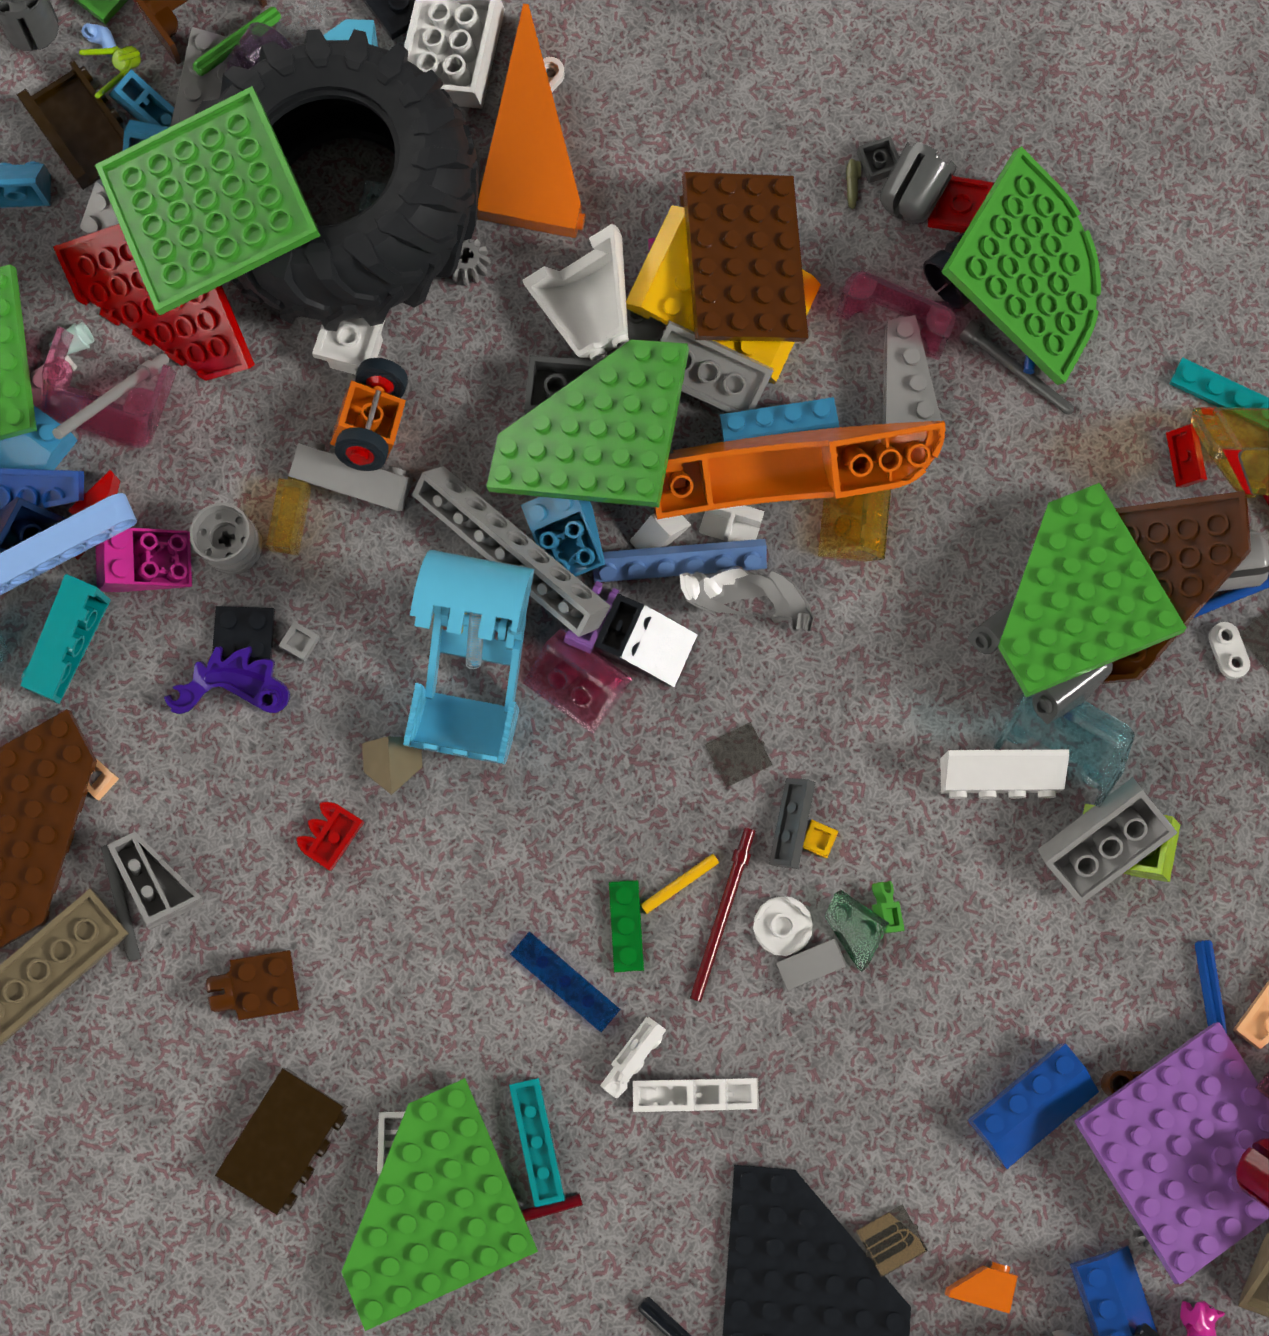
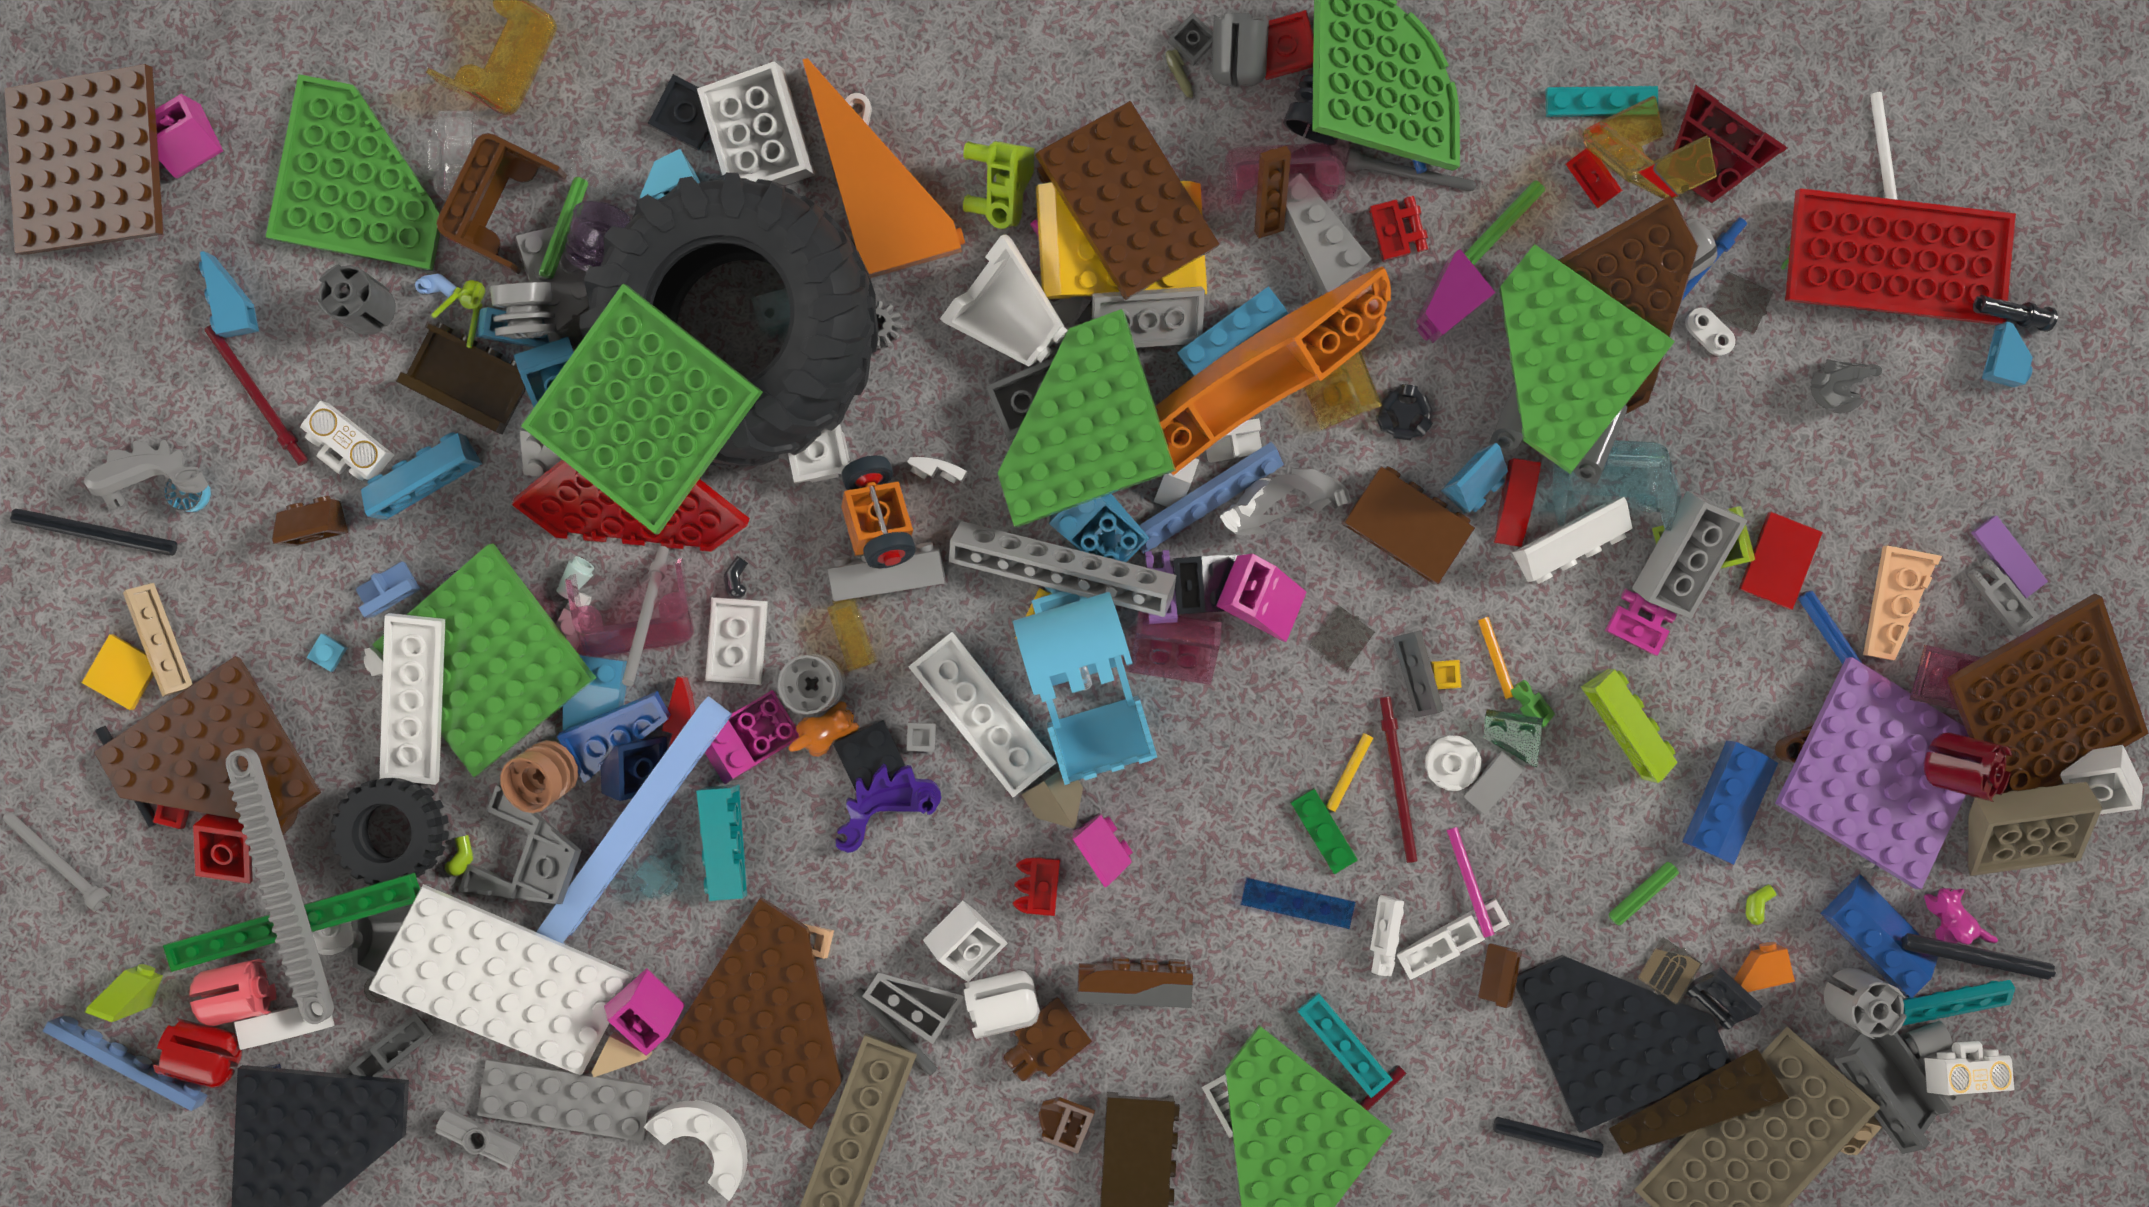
camera: 30 degrees left, 10 degrees up
(161, 81) = (523, 309): none -> light grey wheel
(182, 470) = (736, 641): none -> white tile
(209, 589) = (819, 732): none -> orange animal
(210, 414) = (732, 578): none -> black arm
(230, 1075) = (1064, 1123): none -> reddish brown slope
(232, 851) = (964, 942): none -> white slope
(232, 924) = (1001, 1003): none -> white cylinder
(366, 650) = (982, 714): none -> white plate
(368, 972) = (1136, 983): none -> reddish brown piece
(407, 826) = (1102, 848): none -> dark pink slope
(443, 405) = (929, 466): none -> white slope
(658, 188) = (1013, 171): none -> lime piece
(683, 673) = (1262, 596): none -> dark pink slope
(723, 1154) = (1500, 975): none -> reddish brown panel
(740, 1048) = (1470, 882): none -> dark pink bar
(854, 679) = (1409, 525): none -> reddish brown panel
(875, 846) = (1496, 656): none -> light orange bar
(879, 313) = (1272, 191): none -> reddish brown plate
(904, 578) = (1405, 413): none -> black piece
(904, 1150) = (1643, 893): none -> bright green axle
(937, 1291) = (1728, 994): none -> black plate
(939, 667) = (1477, 478): none -> dark azure slope
(967, 710) = (1516, 501): none -> red slope
(971, 975) = (1630, 725): none -> lime slope
(973, 411) = (1390, 230): none -> red plate
(1000, 495) = (1453, 297): none -> magenta slope
(1009, 1220) = (1756, 904): none -> lime arm
(1022, 889) = (1637, 630): none -> dark pink plate
(1080, 456) = (1505, 221): none -> bright green axle
(1194, 897) = (1780, 561): none -> red tile

